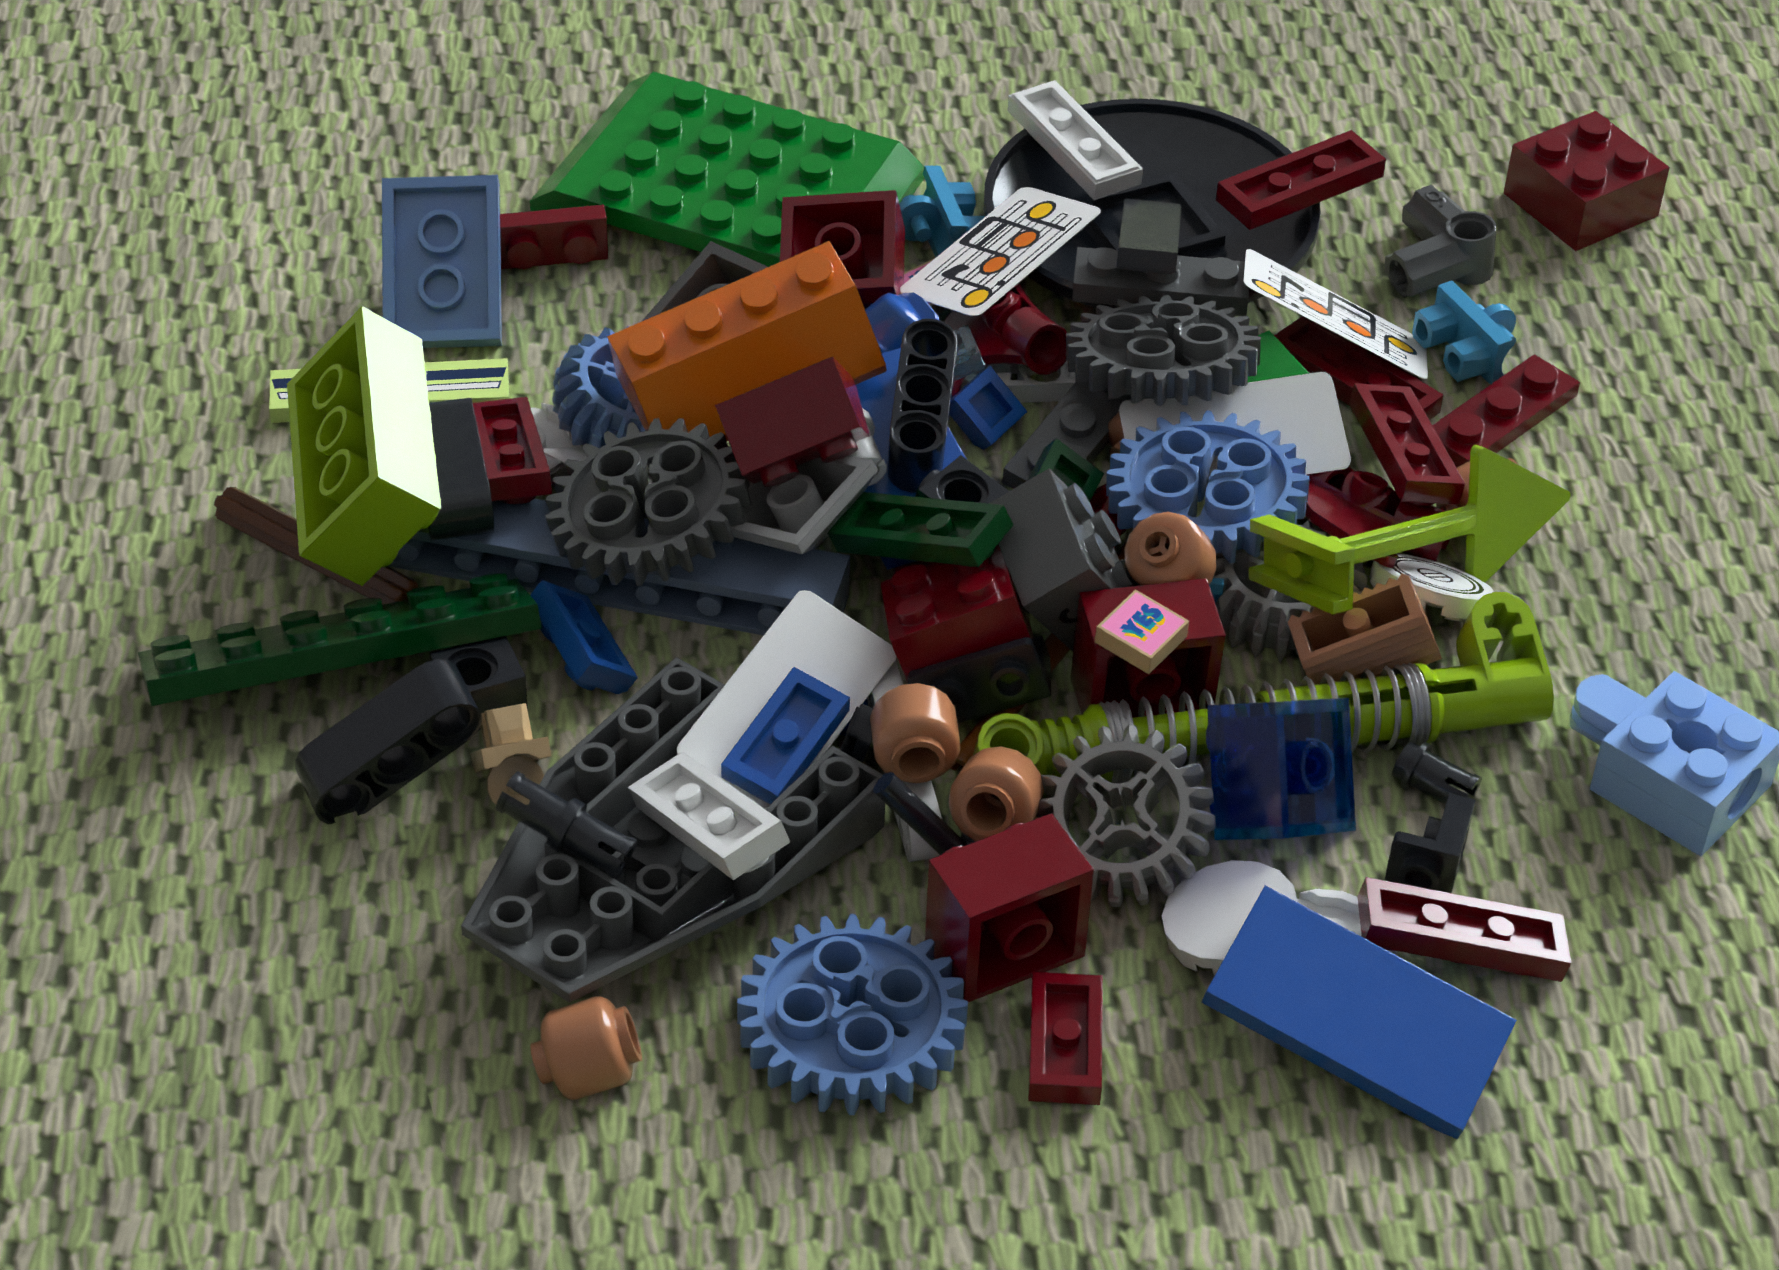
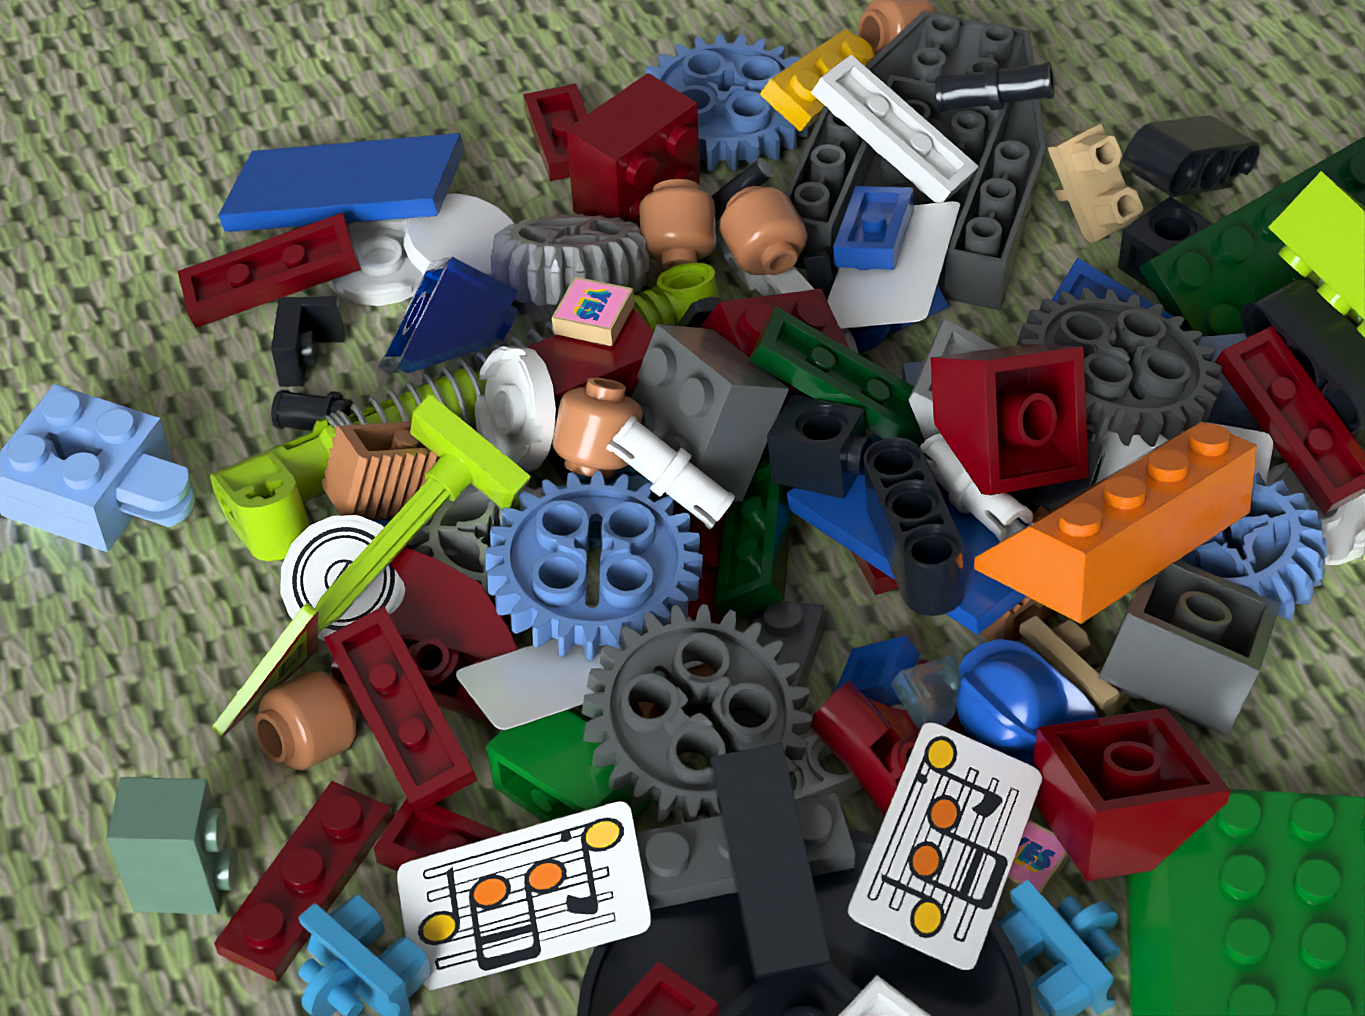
camera: 165 degrees right, 5 degrees up
(730, 971) = (792, 88): none -> yellow plate
(1123, 497) = (671, 472): none -> white pin
(1241, 619) = (517, 405): none -> white tile
(1610, 402) = (171, 845): none -> sand green brick

